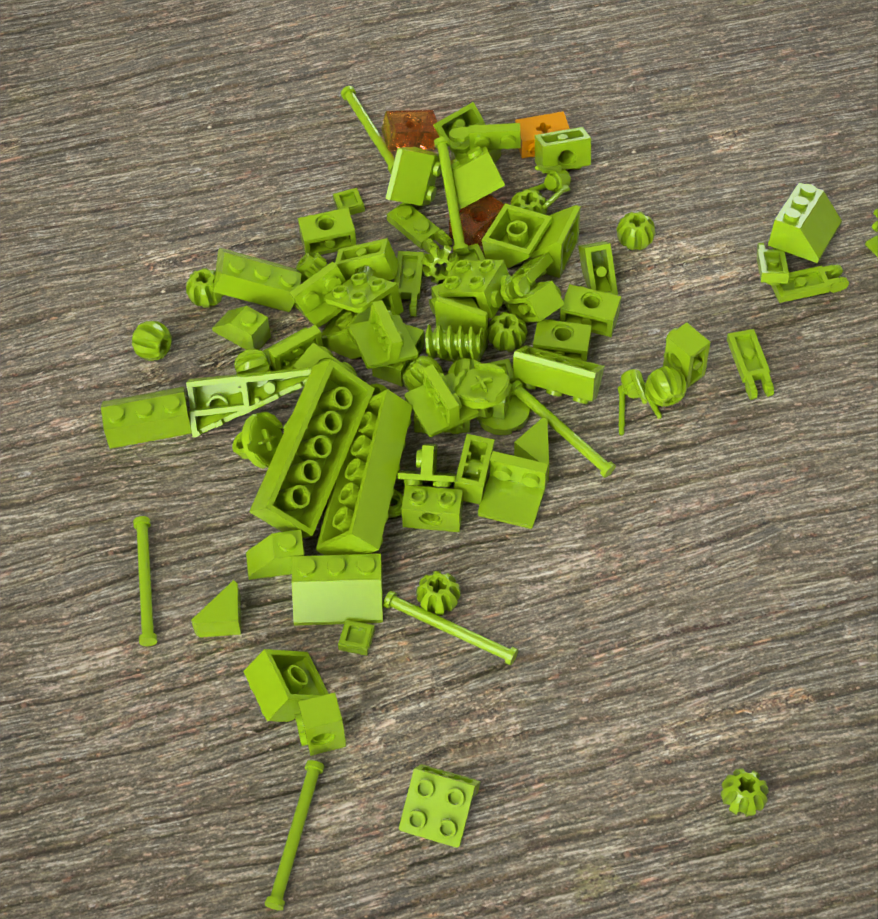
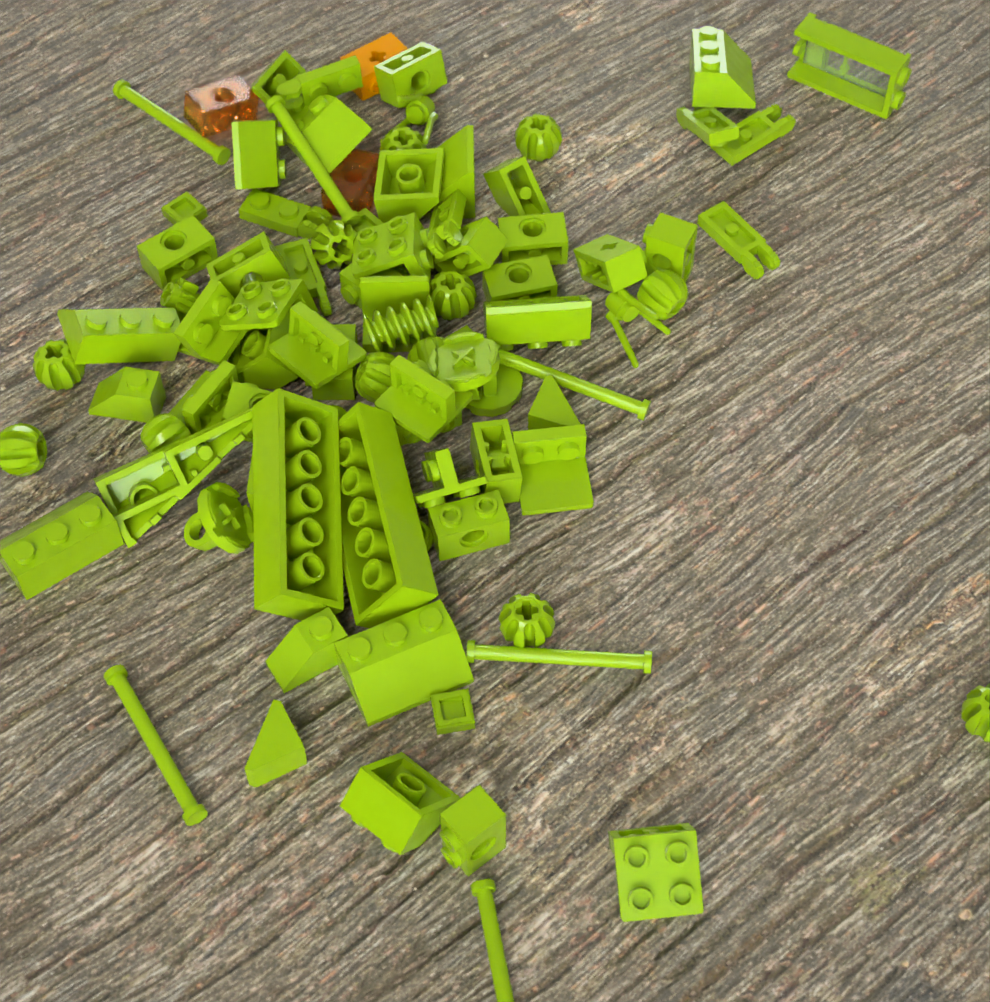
camera: 25 degrees left, 0 degrees up
(637, 348) = (611, 263): none -> lime brick

